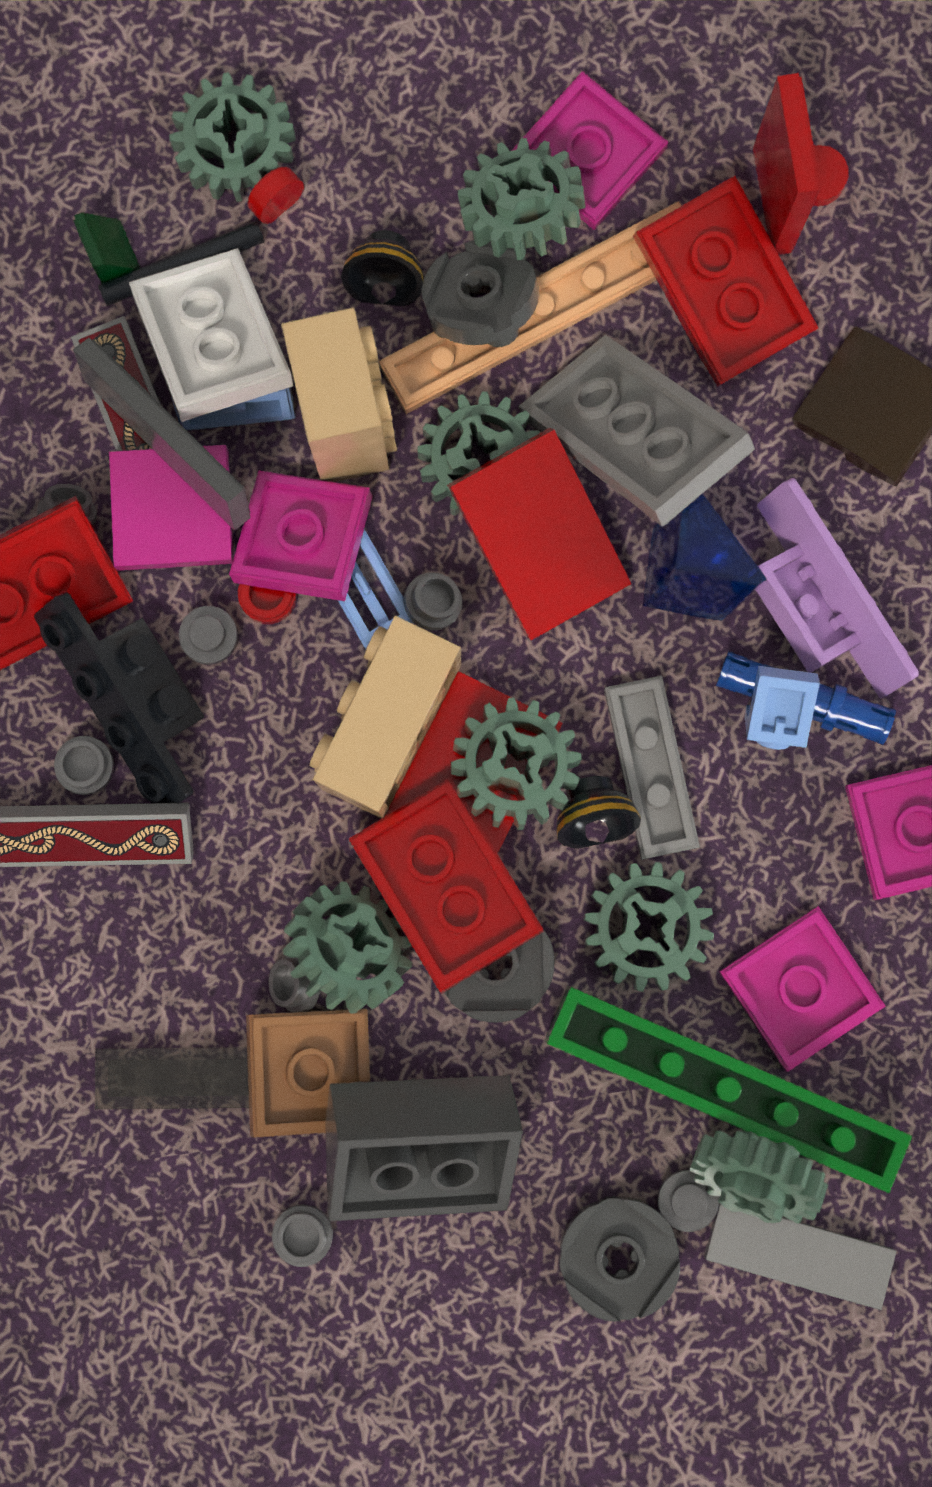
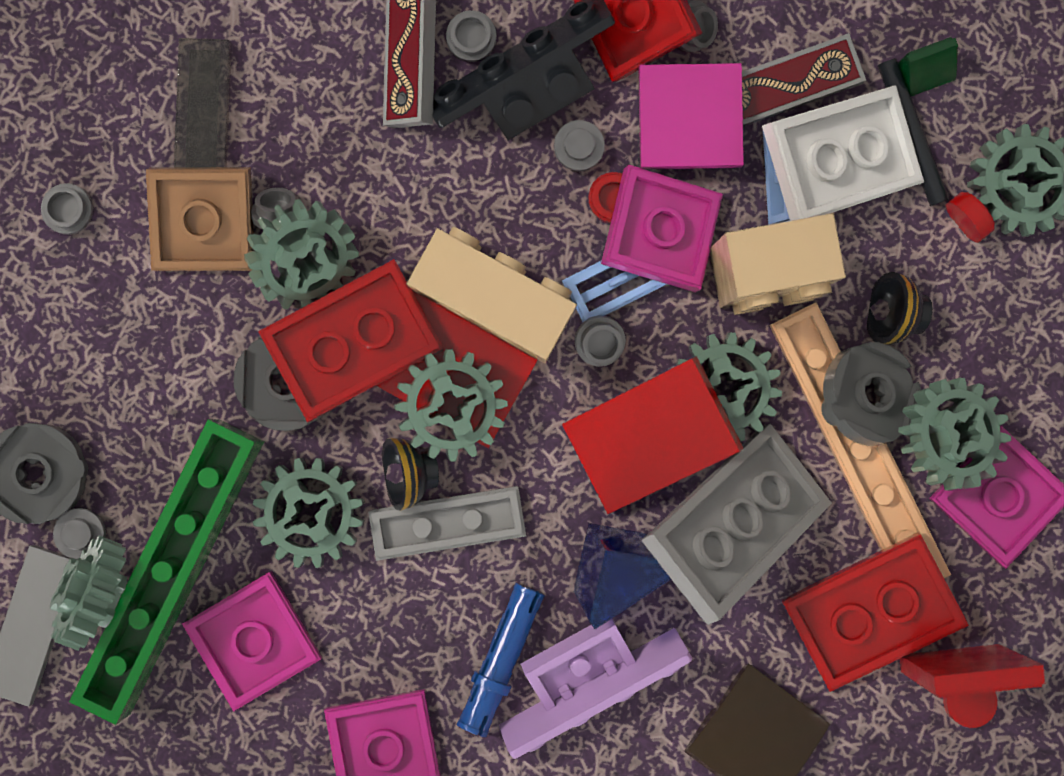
camera: 90 degrees right, 5 degrees up
(163, 433) = (752, 109): dark grey tile -> none
(421, 1147) = (132, 310): dark grey slope -> none
(781, 707) = (489, 637): light blue bracket -> none

